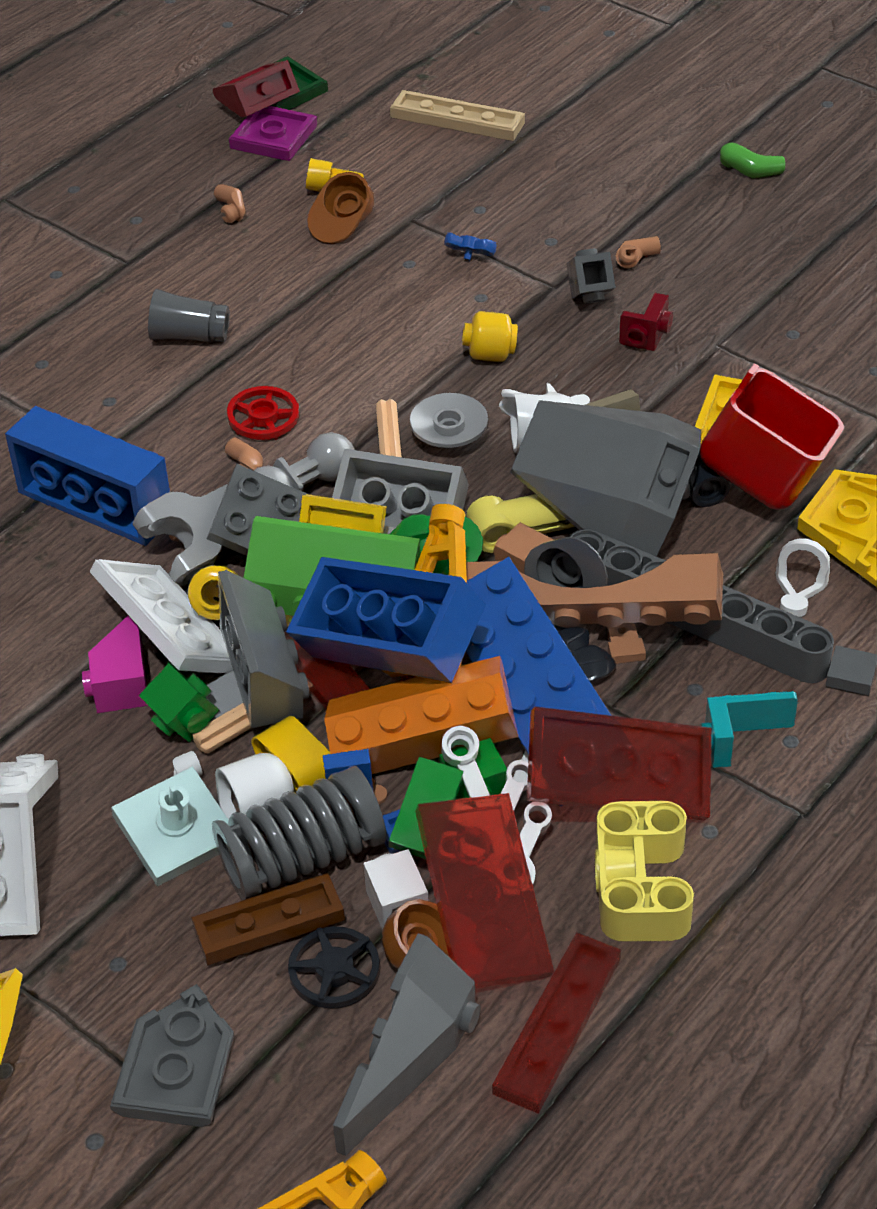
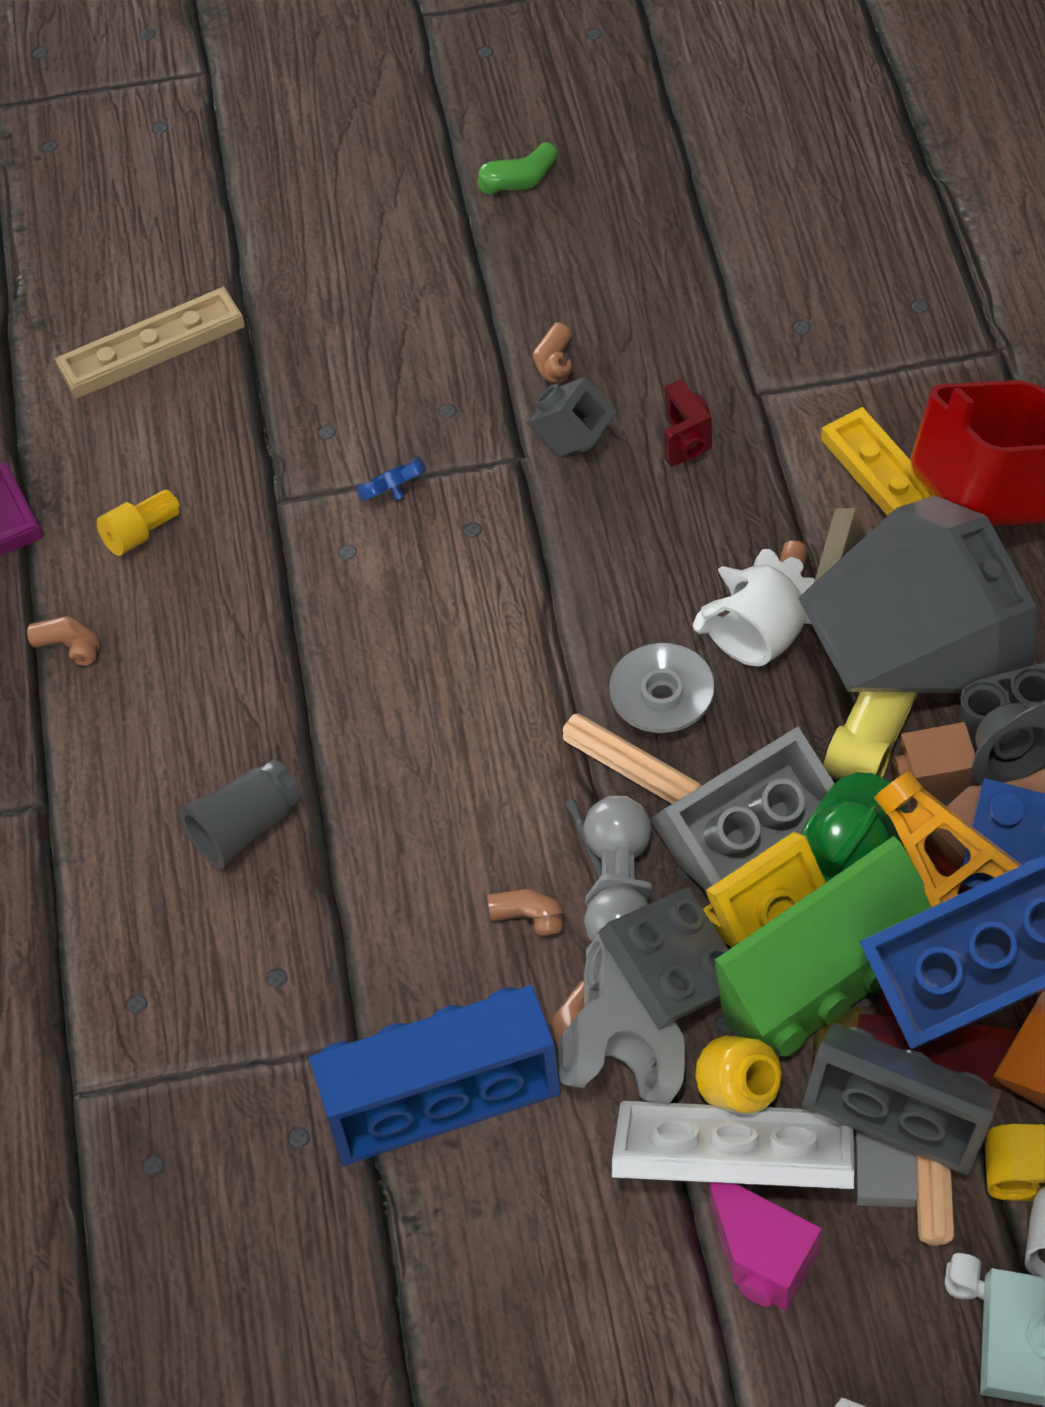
camera: 45 degrees left, 10 degrees up
(179, 702) = (882, 1220): green brick -> none
(263, 413) = (461, 843): red wheel -> none
(340, 207) = (207, 548): dark orange cap -> none
(490, 336) = (569, 563): yellow head -> none

